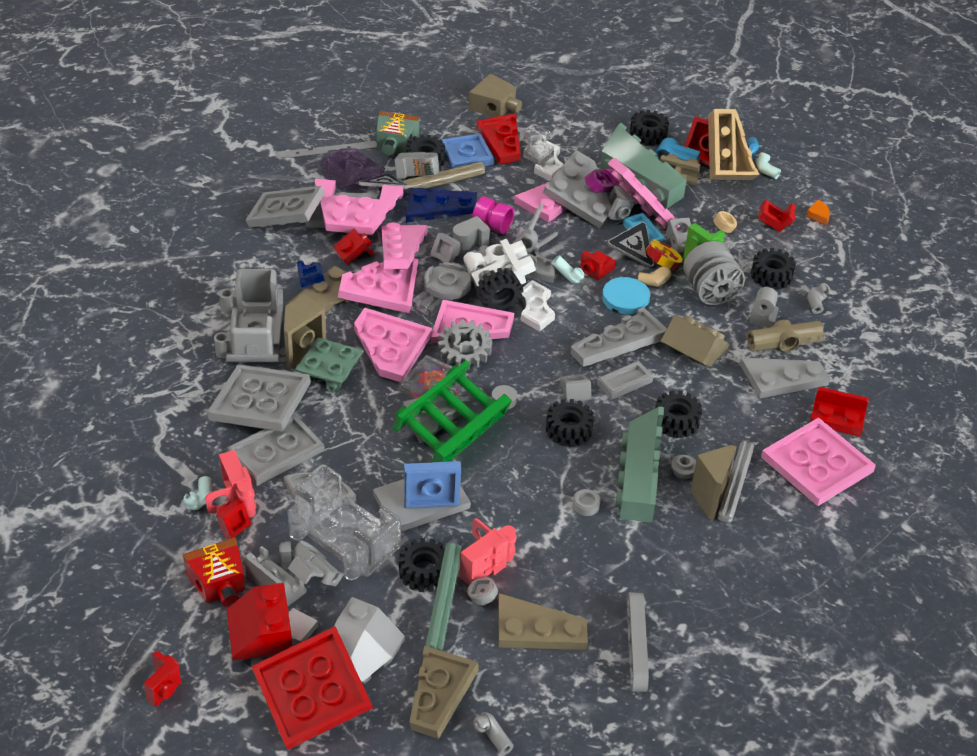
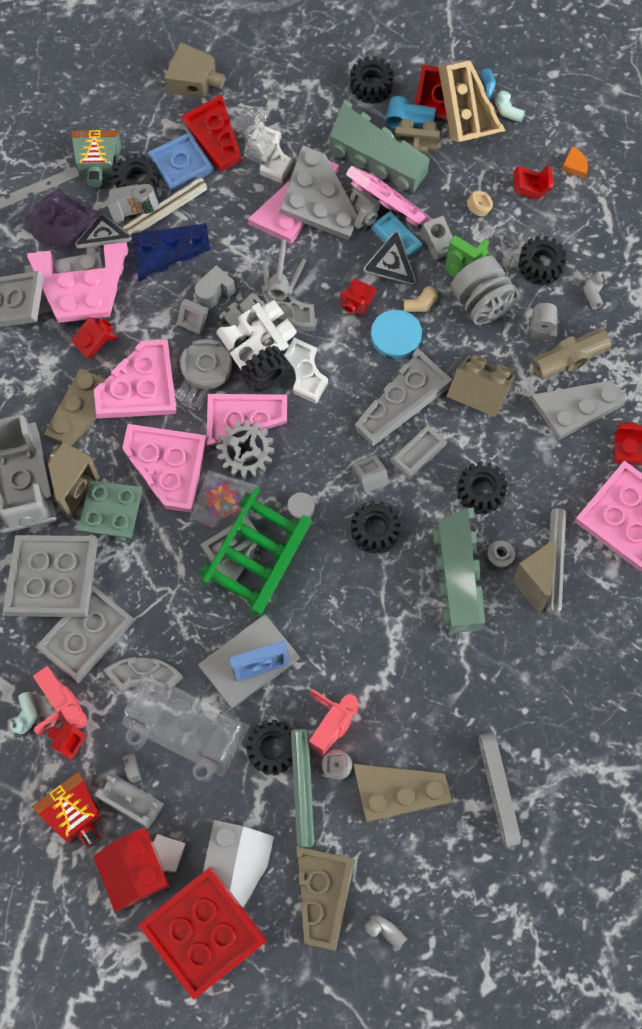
camera: 10 degrees left, 25 degrees up
(164, 680) = (56, 960): red bracket -> none
(310, 273) = (57, 389): clear blue tile -> none
(311, 563) = (168, 781): light grey piece -> none
(401, 243) = (144, 326): bright pink wing -> none
(495, 216) = (233, 257): dark pink wheel -> none
(572, 275) = (334, 319): light aqua arm -> none
(586, 502) = (413, 623): light grey tile -> none
(601, 180) = (340, 182): magenta beam -> none
(664, 255) = (425, 270): piece -> none

